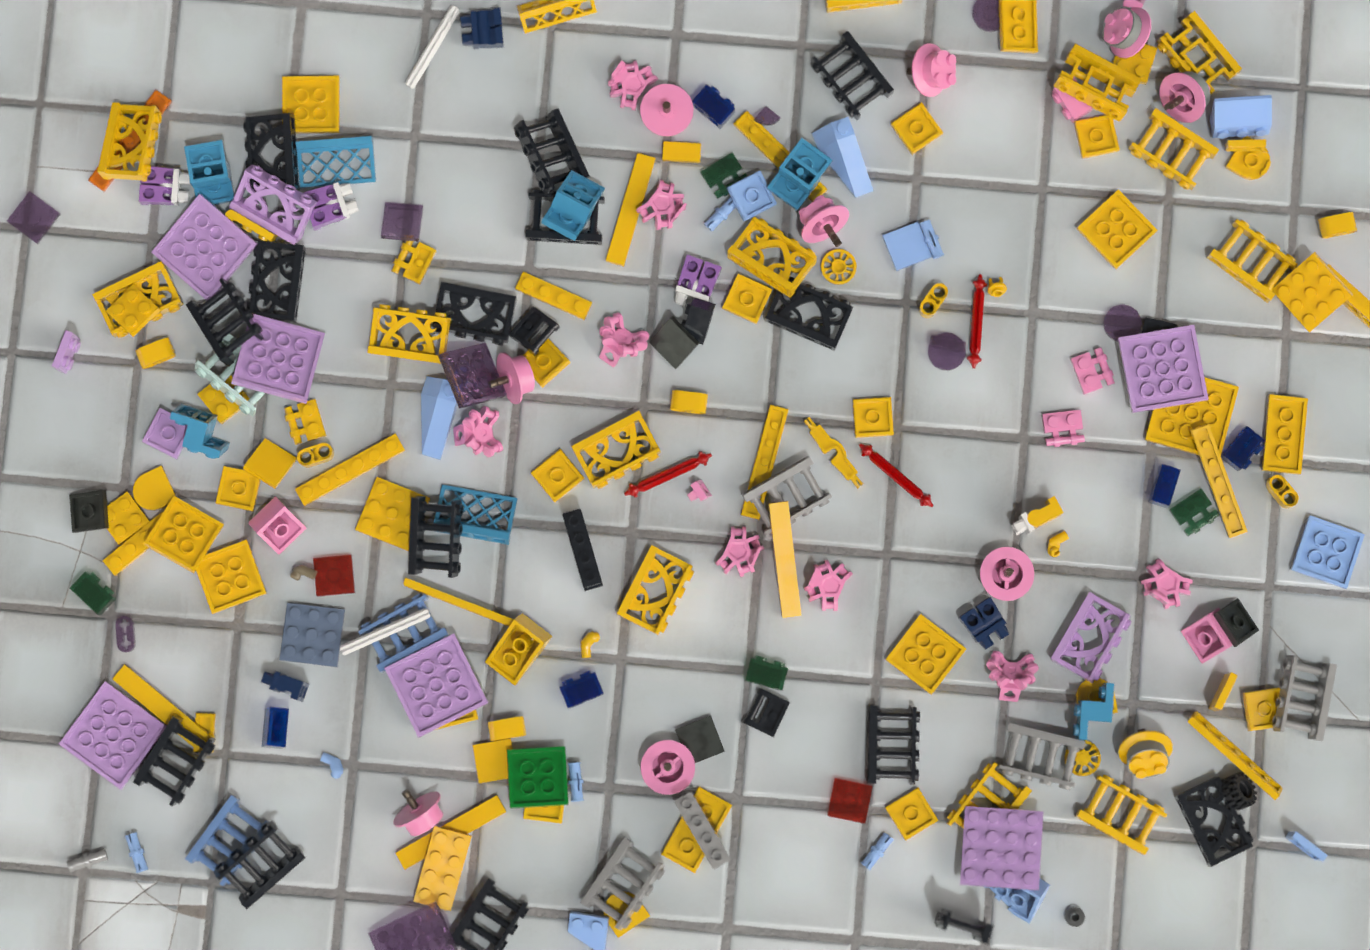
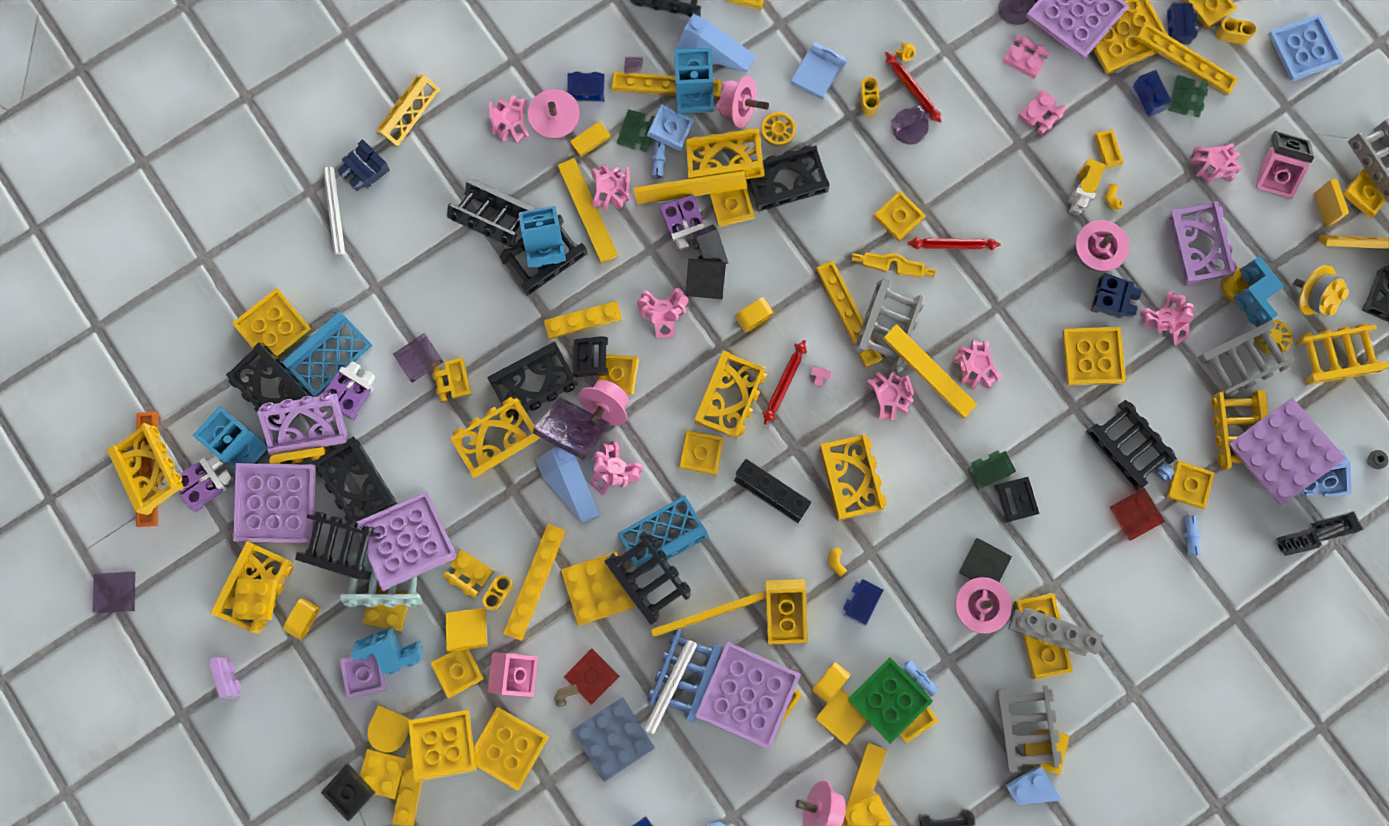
camera: 40 degrees left, 5 degrees down
(281, 683) = (626, 798): dark blue hips -> none
(724, 259) = (688, 187): none -> yellow tile
(899, 787) = (1164, 472): none -> light blue plate
(1090, 501) = (1108, 148): none -> yellow tile

